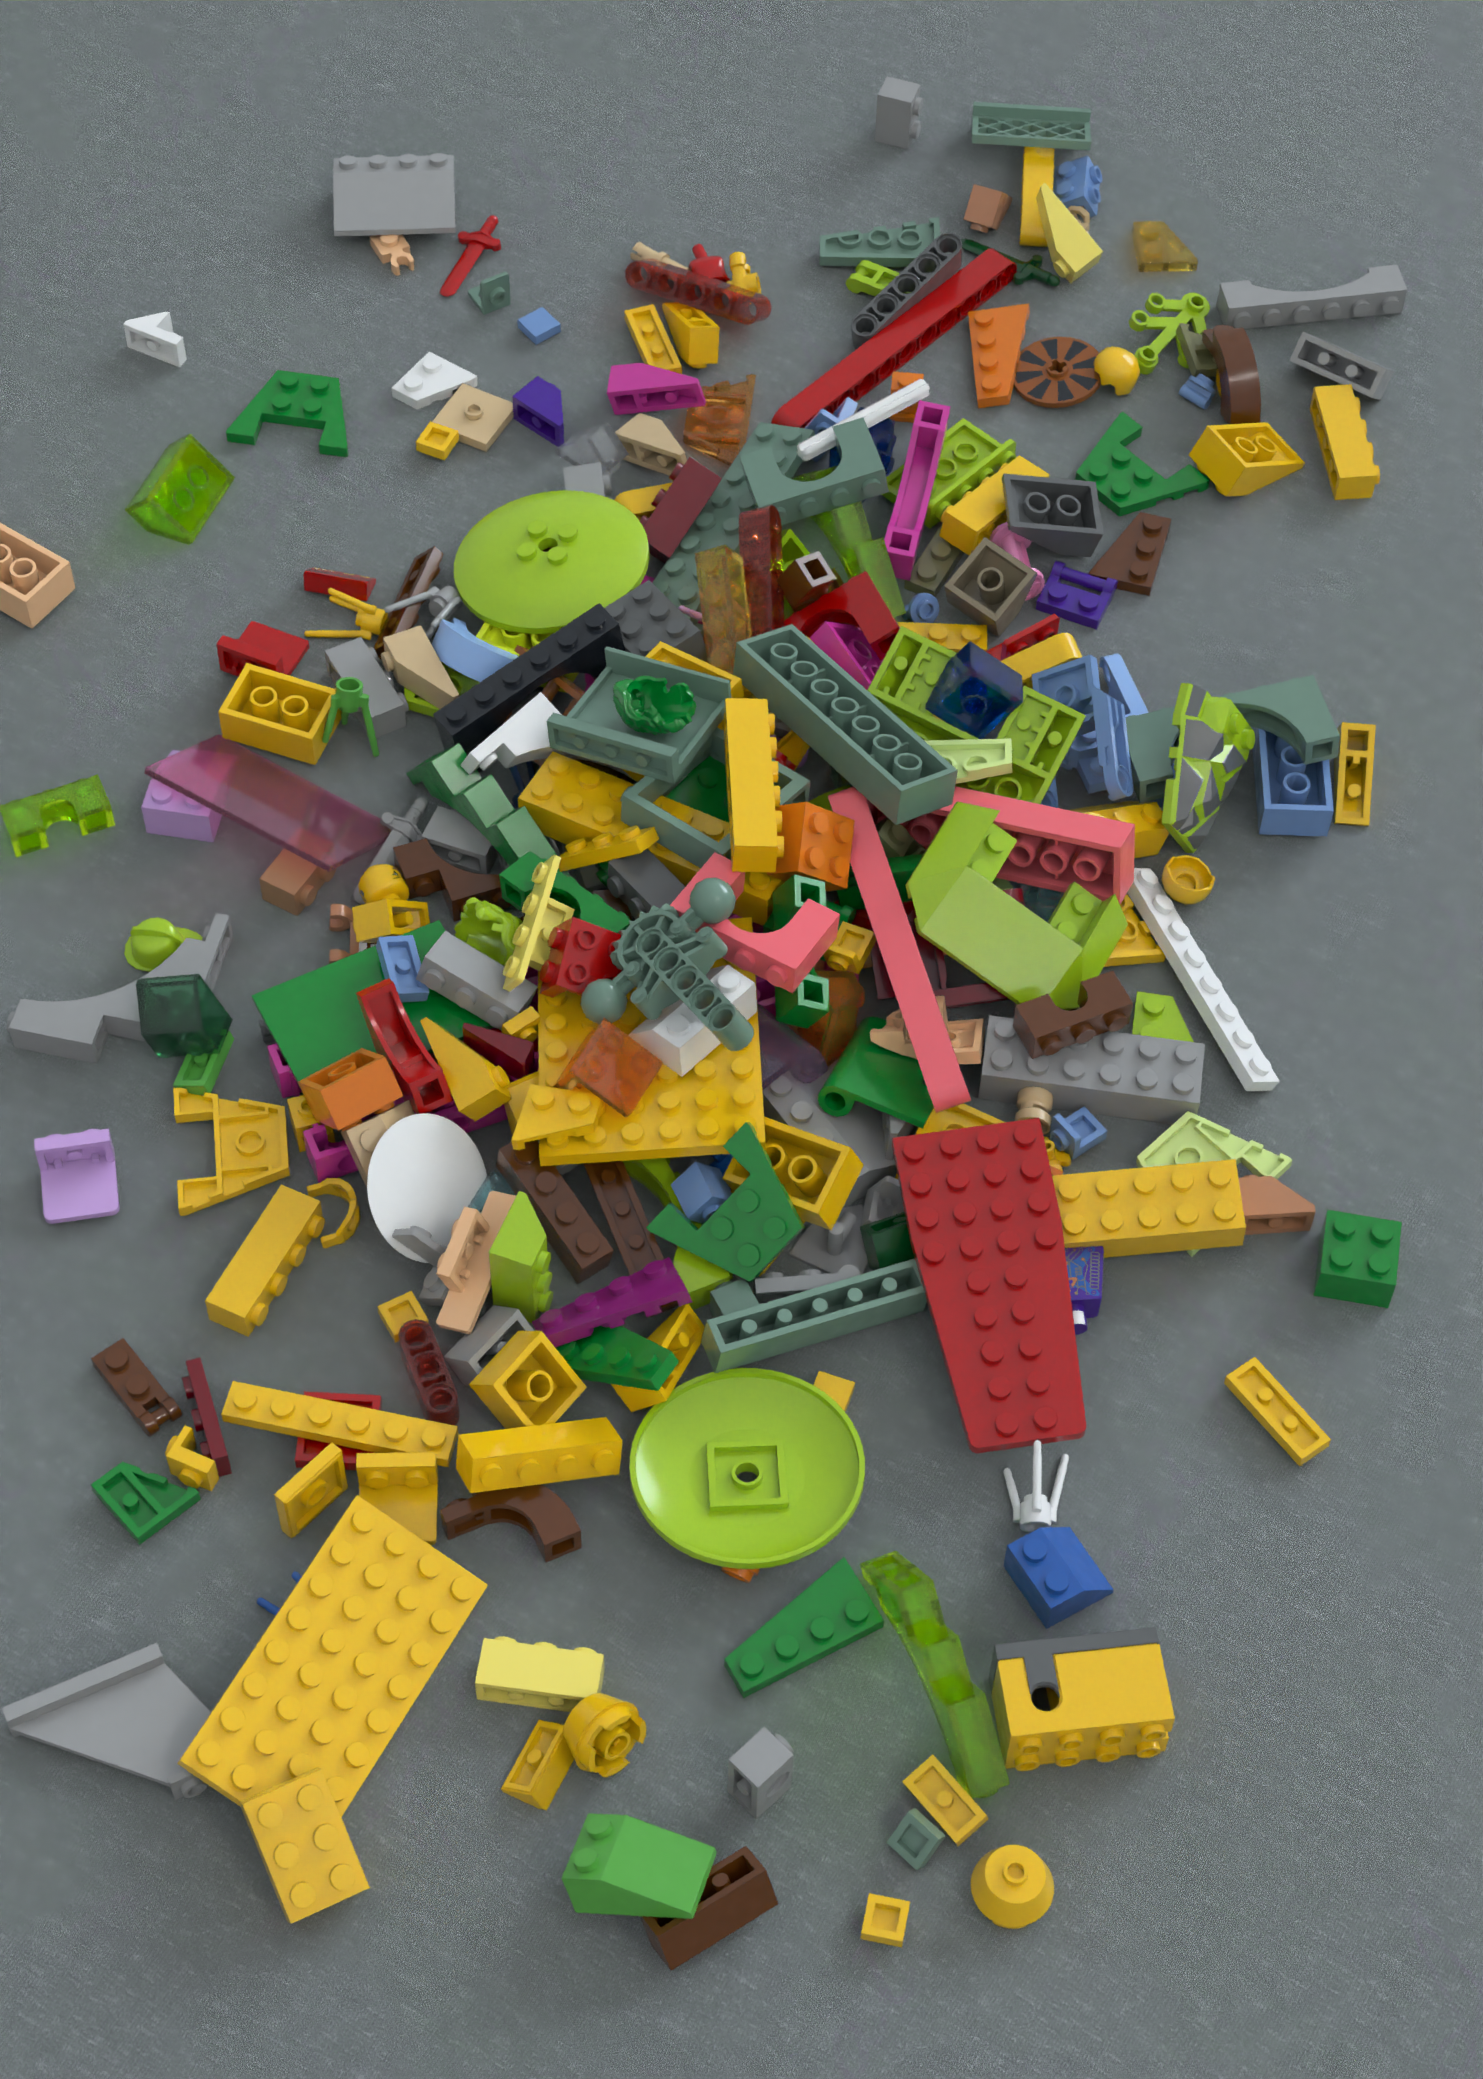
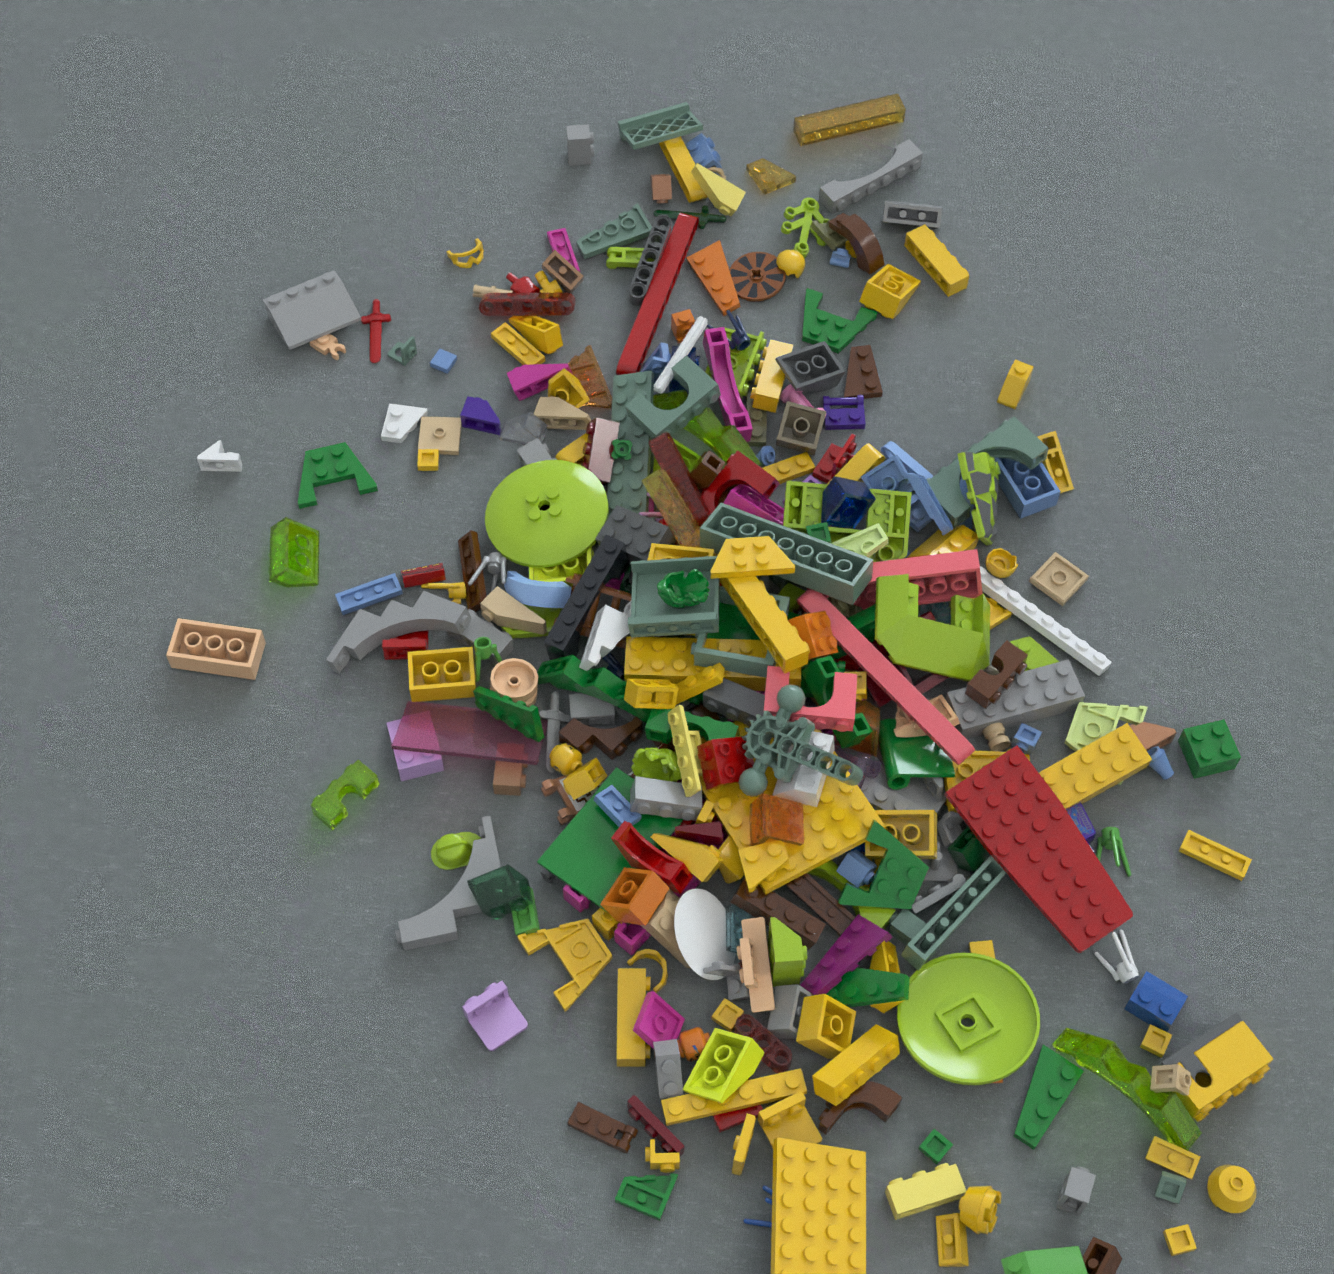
camera: 25 degrees left, 5 degrees up
(249, 578) = (368, 594): none -> medium blue plate
(261, 620) = (369, 630): none -> light grey arch
(267, 1342) = (668, 1068): none -> light grey brick
(291, 1281) = (657, 1020): none -> dark pink plate
(330, 1333) = (692, 1043): none -> orange head
(342, 796) = (513, 714): none -> green wing
(348, 1372) = (723, 1065): none -> neon yellow slope
(369, 766) = (515, 679): none -> light nougat wheel
(532, 830) = (651, 693): none -> yellow brick
(594, 1623) = (935, 1146): none -> green plate
(658, 211) = (454, 256): none -> yellow helmet
(682, 413) = (567, 388): none -> yellow slope
(705, 507) = (626, 445): none -> green plate
(771, 265) = (562, 271): none -> medium nougat brick
(774, 700) = (750, 558): none -> yellow wing
(794, 248) = (560, 242): none -> dark pink tile
(915, 716) = (819, 531): none -> green plate
(974, 440) = (739, 337): none -> dark blue plant
(991, 1671) = (1170, 1078): none -> tan bracket
(1021, 1624) = (1156, 1041): none -> yellow plate
(1123, 1324) = (1112, 841): none -> bright green plant
(1264, 1242) = (1160, 762): none -> medium blue cone
(1266, 936) = (1058, 578): none -> tan plate
(1325, 212) = (849, 119): none -> clear yellow brick
(1362, 648) = (1015, 384): none -> yellow slope

